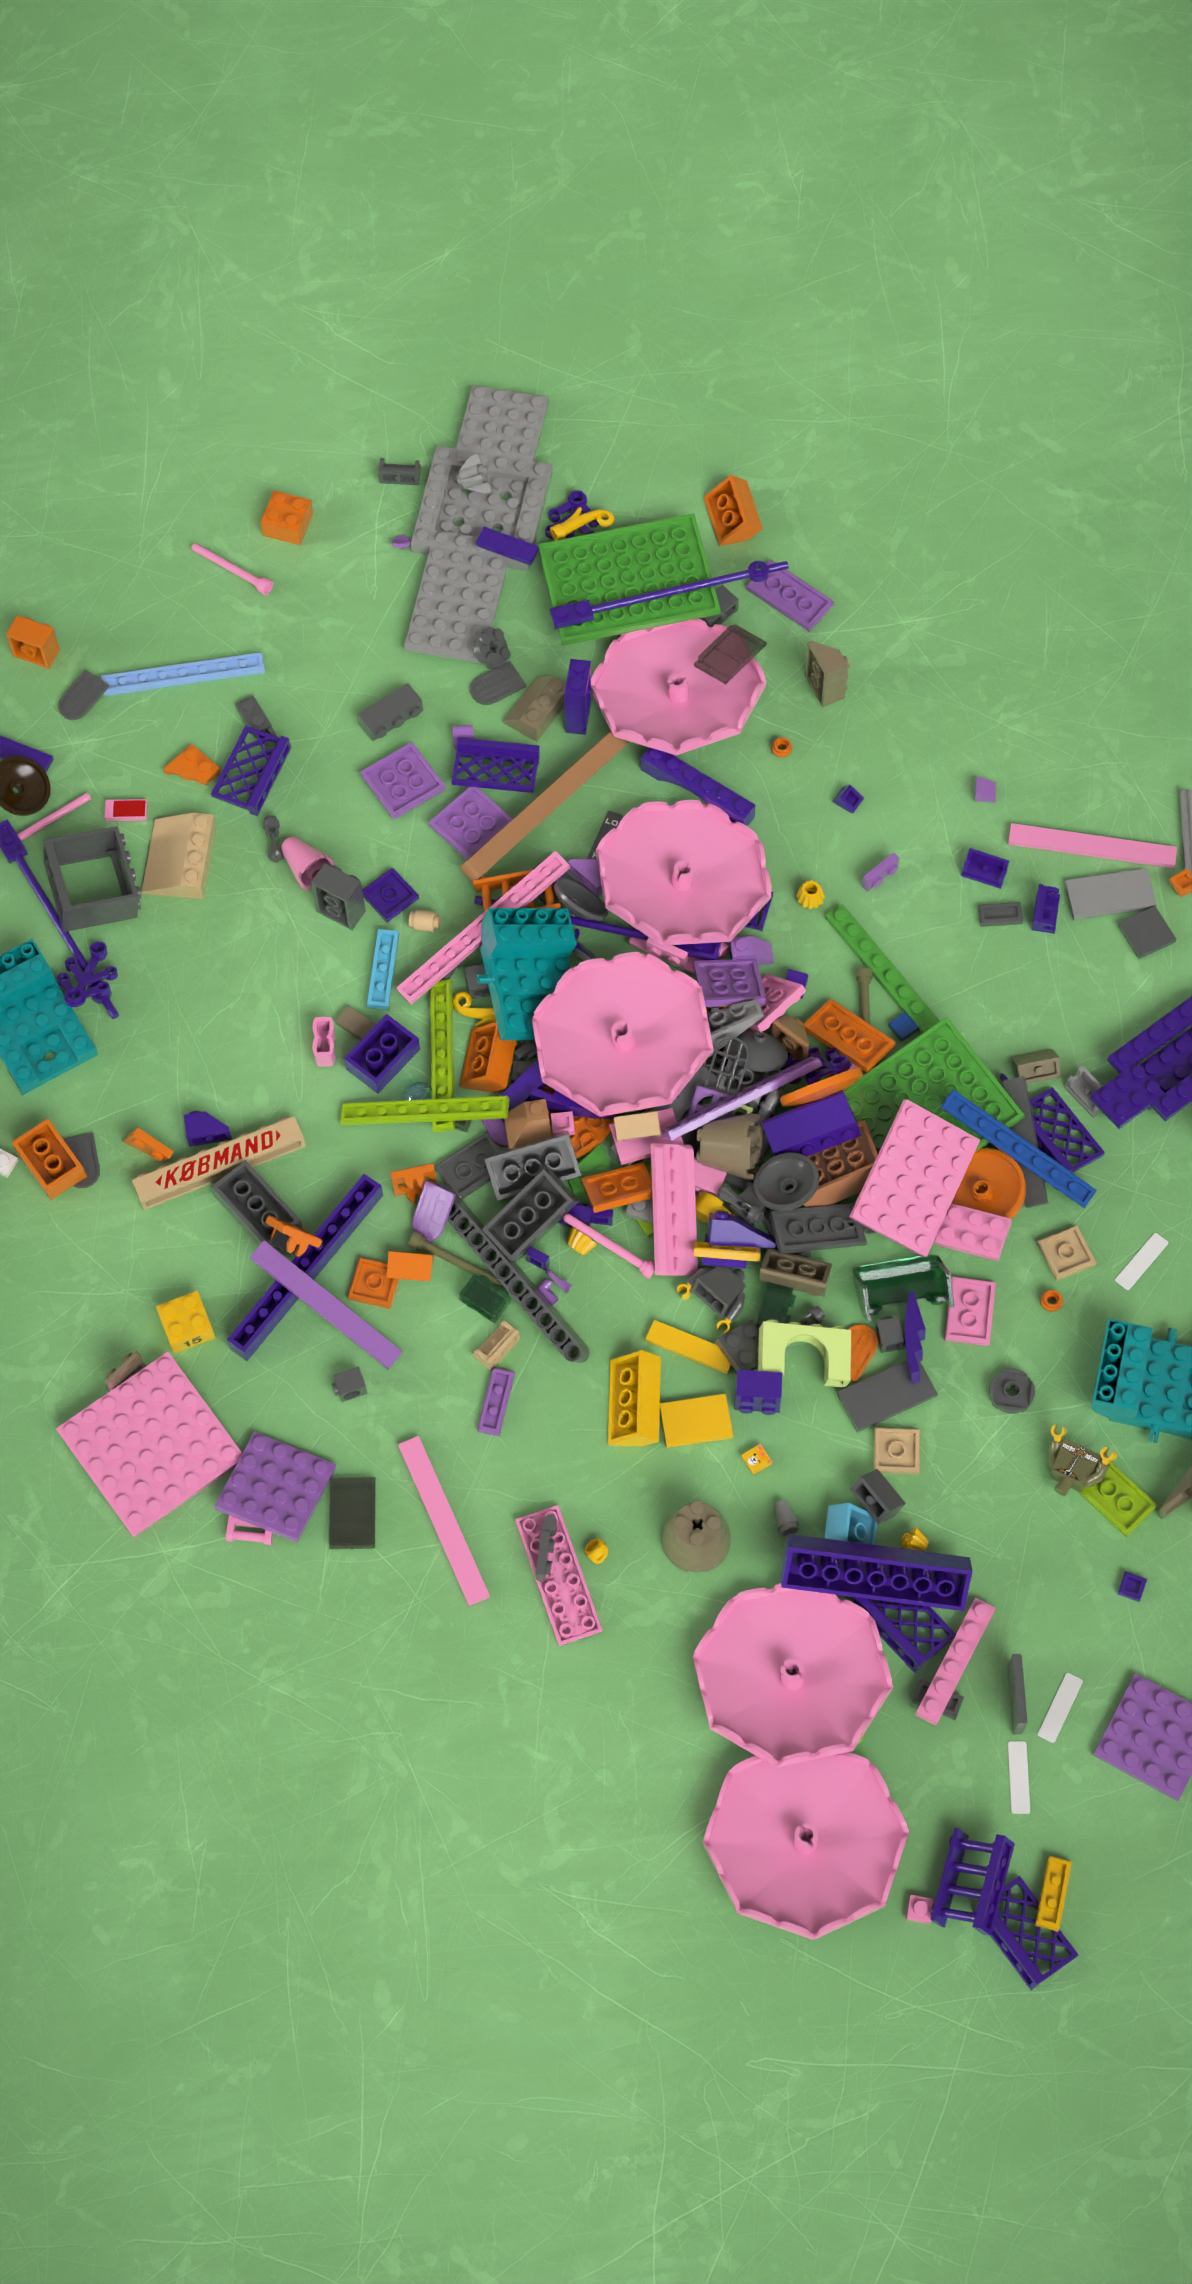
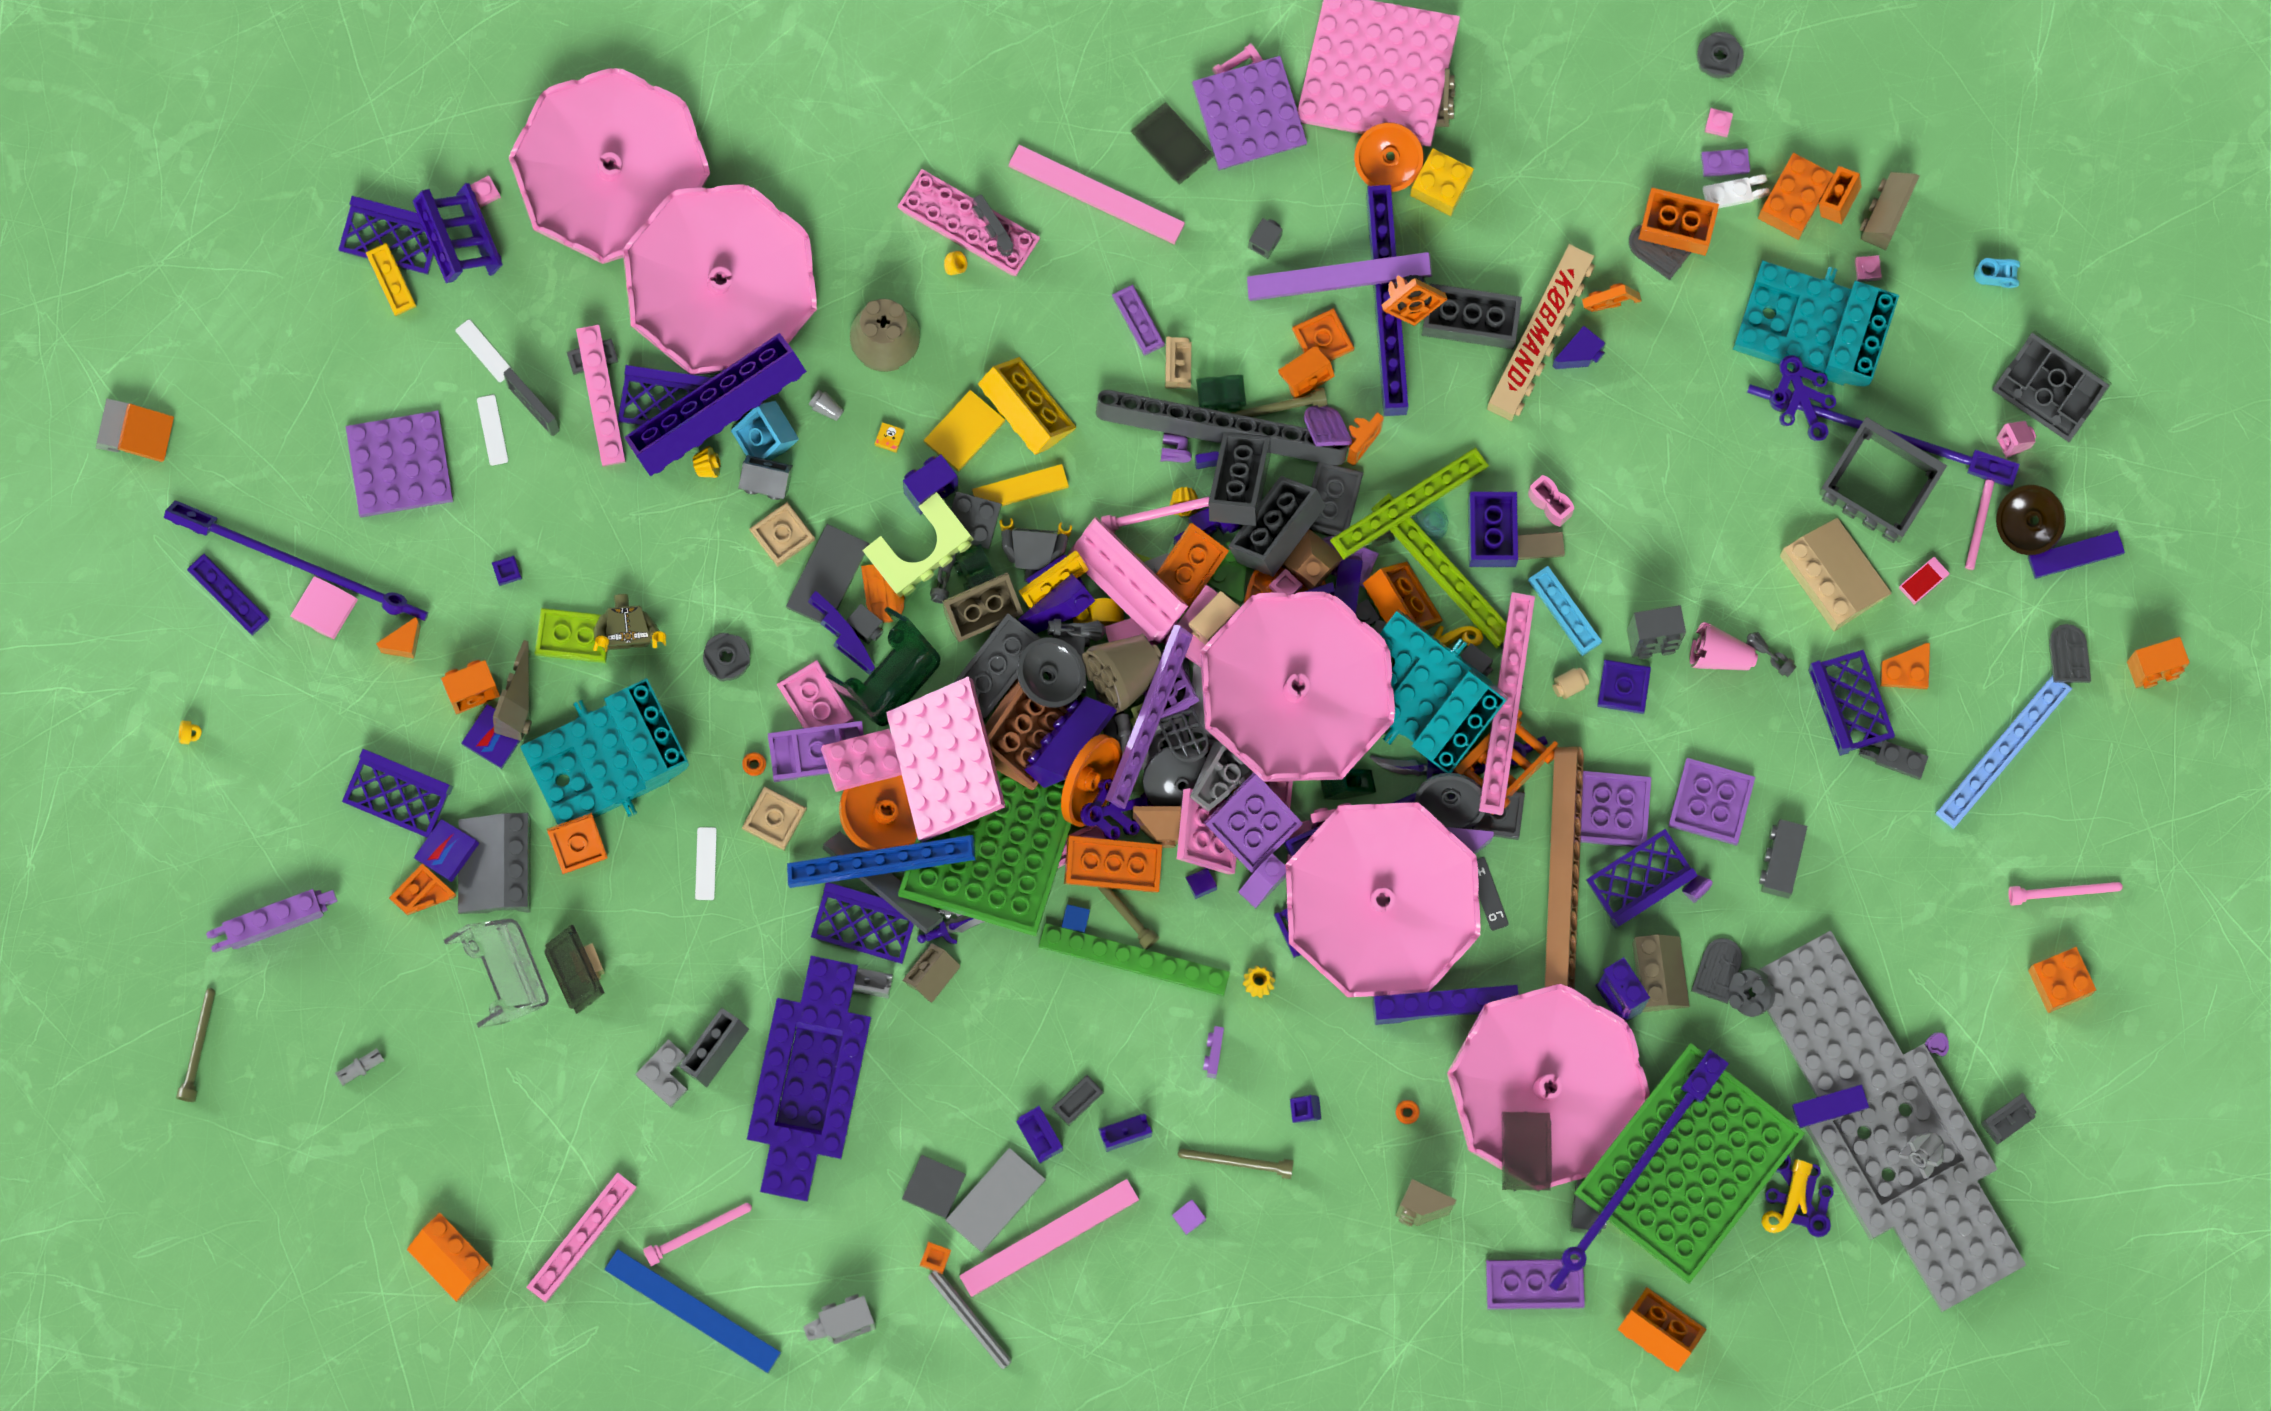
camera: 135 degrees right, 10 degrees up
(210, 1358) = (1372, 158): none -> orange dish
(895, 772) = (1282, 1168): none -> olive piece
(1011, 1275) = (799, 751): none -> medium lavender piece

